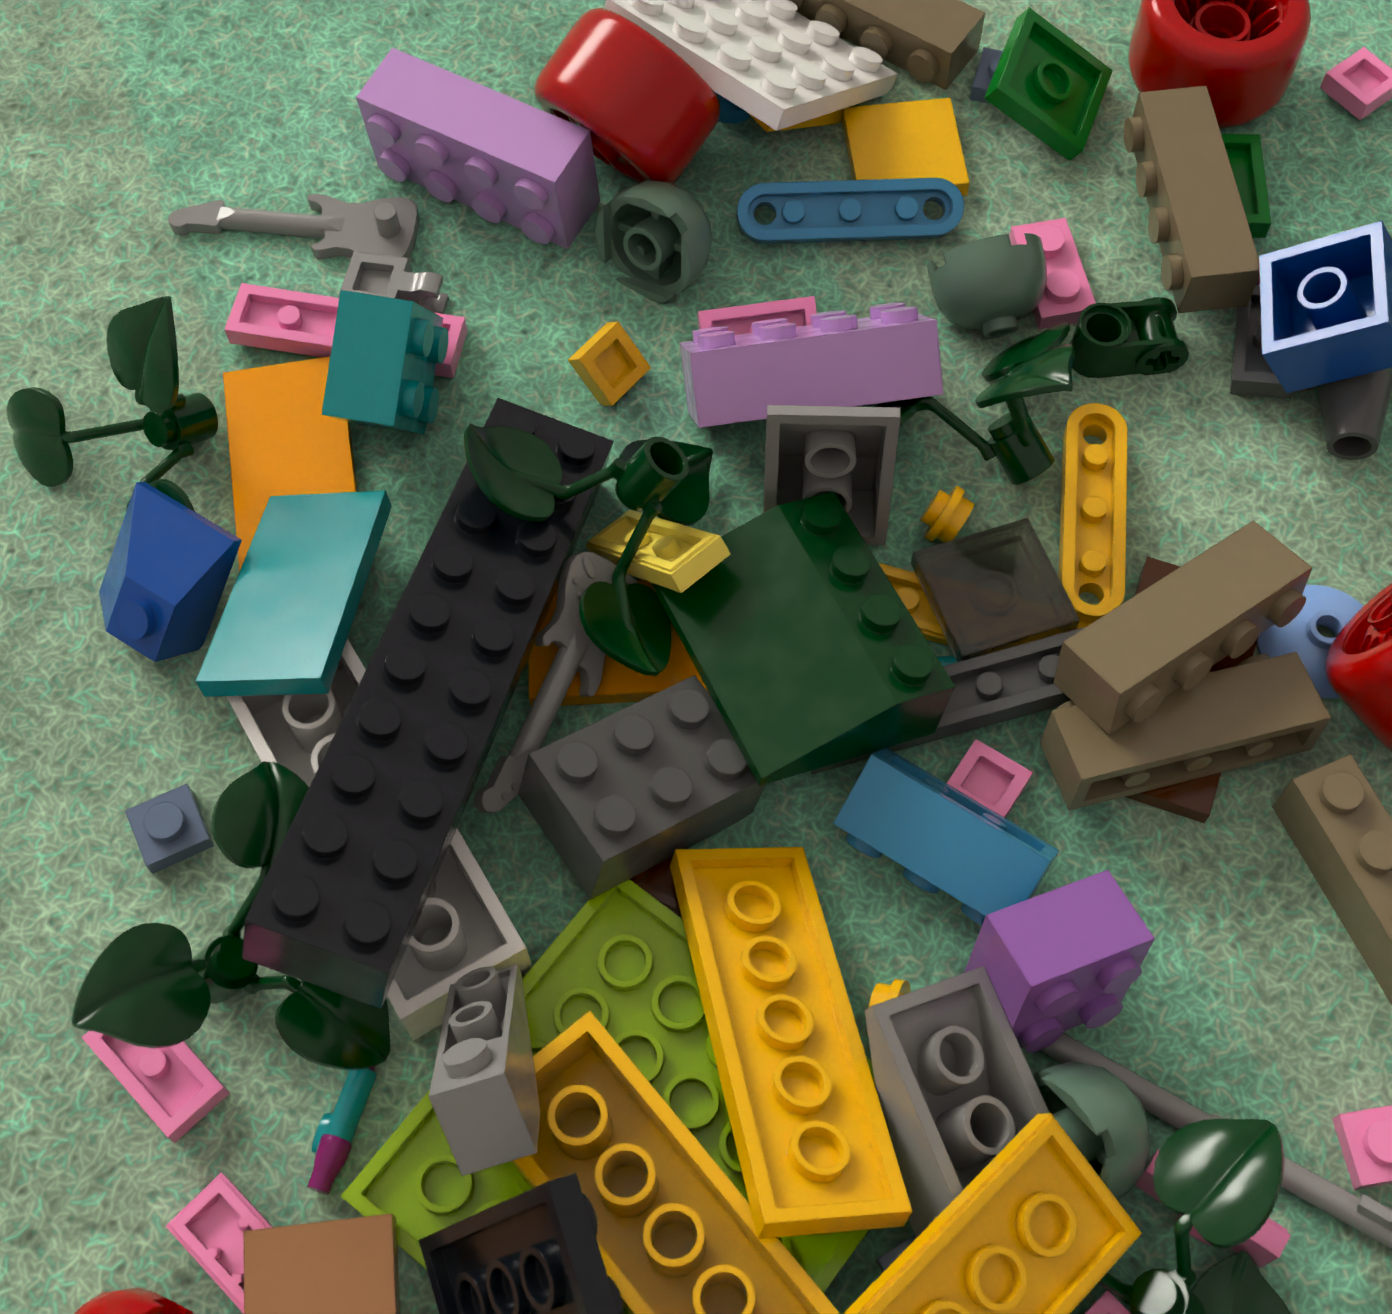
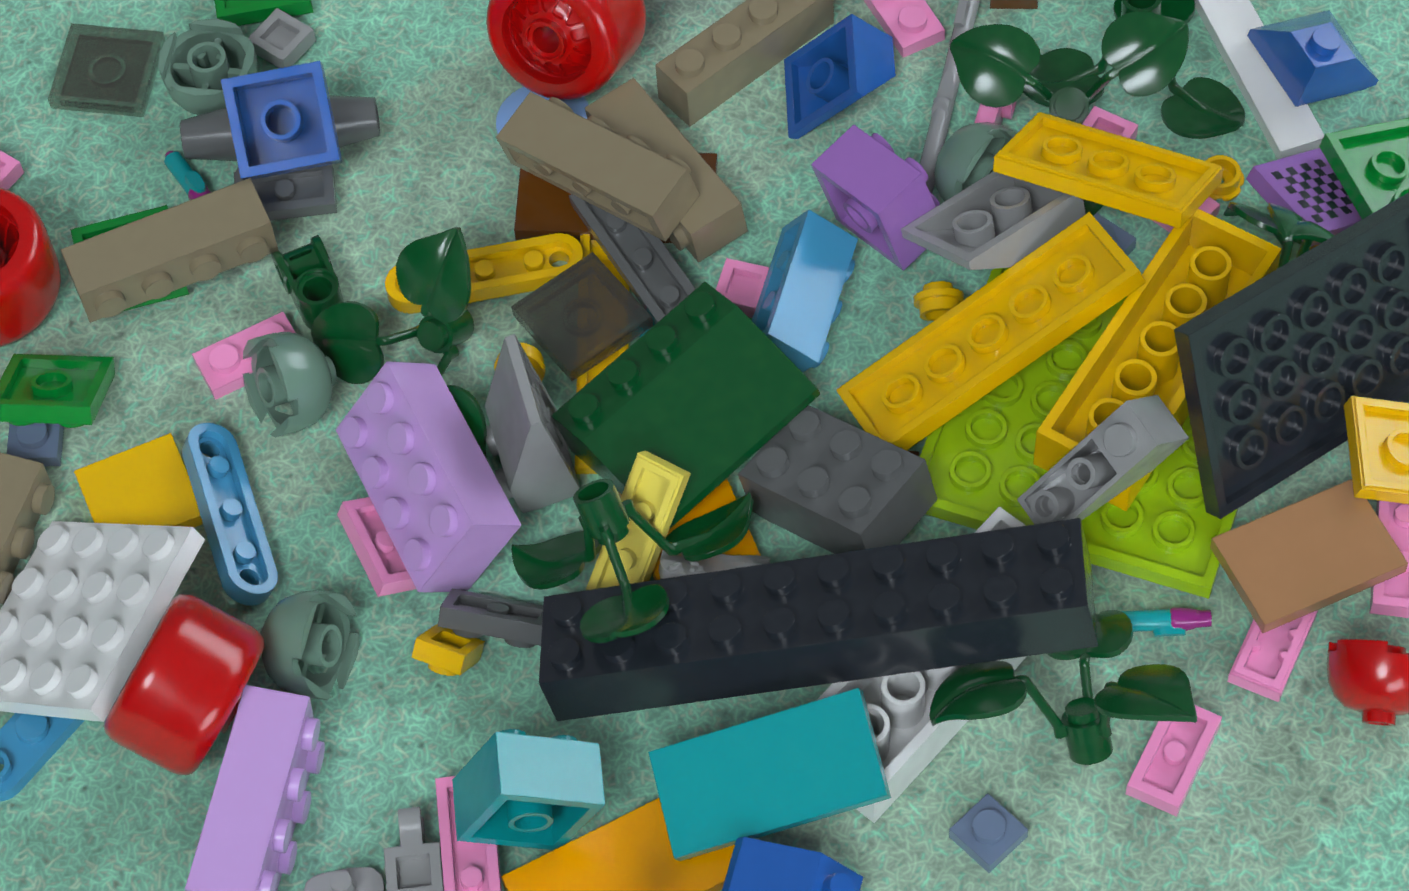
camera: 105 degrees left, 5 degrees down
(634, 402) = (481, 614): none -> dark grey plate
(1302, 1005) = (835, 72): none -> blue slope

